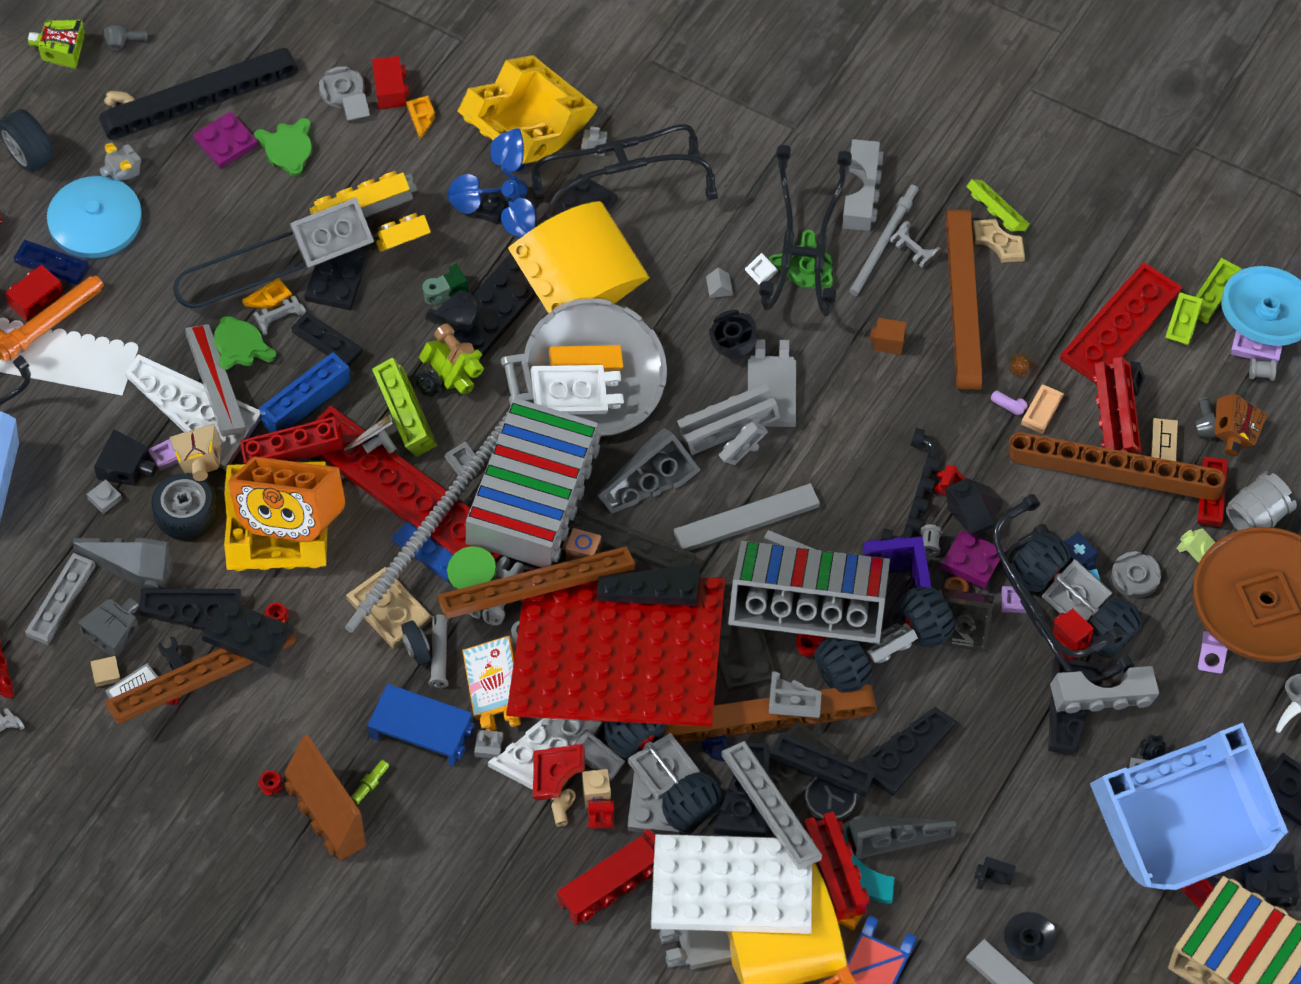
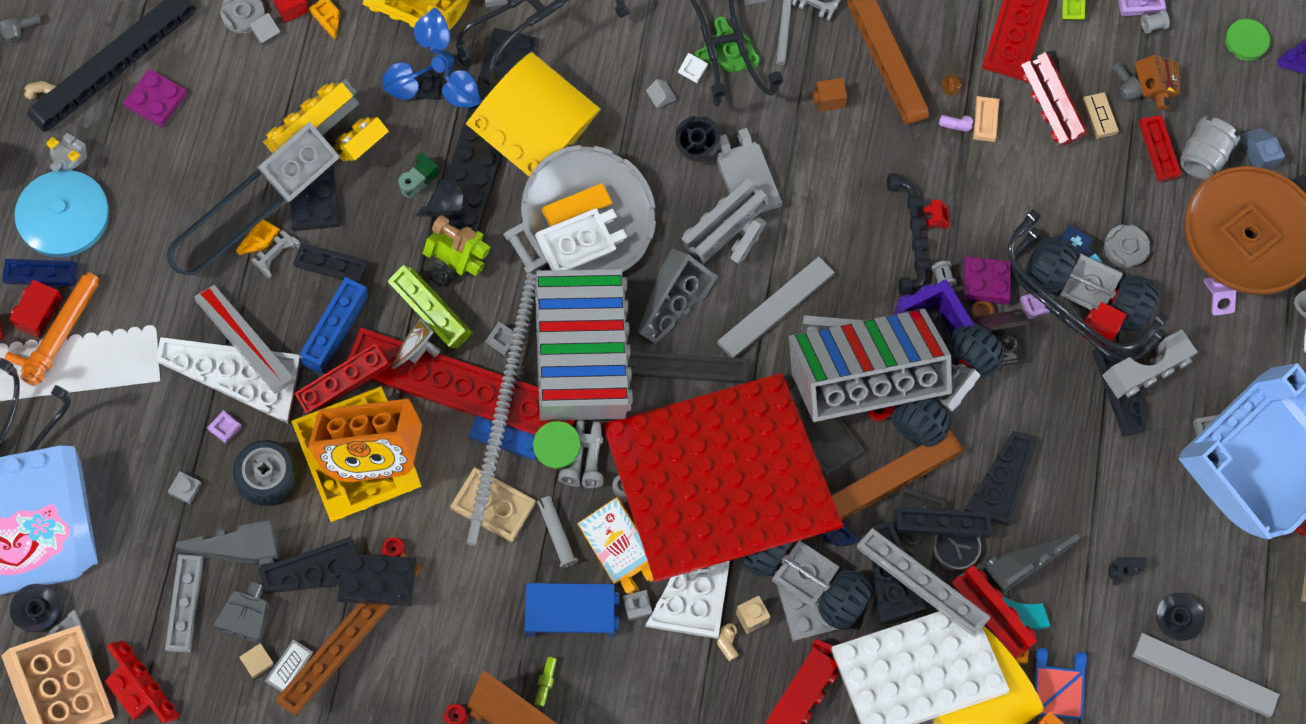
camera: 25 degrees left, 10 degrees up
(123, 460) = (190, 446): black torso -> none
(173, 658) = (322, 630): black plate -> none
(198, 451) = (259, 417): tan torso -> none
(240, 343) = (251, 294): bright green tile -> none
(288, 146) = (216, 85): bright green tile -> none
(415, 642) = (535, 533): black wheel -> none
(535, 582) = (621, 438): dark orange plate -> none
(554, 767) = (710, 612): red tile -> none
(581, 544) = (645, 387): nougat brick -> none
(598, 755) = (739, 582): light grey tile -> none
(600, 813) = (766, 637): red tile -> none
(656, 586) = (728, 404): black wing -> none
(793, 698) = (893, 469): light grey wing -> none
(973, 505) = (968, 231): black slope -> none
(1125, 474) = (1082, 146): dark orange beam -> none
(1153, 747) = (1209, 403): black plant -> none
(1196, 543) = (1169, 201): yellowish green bracket -> none

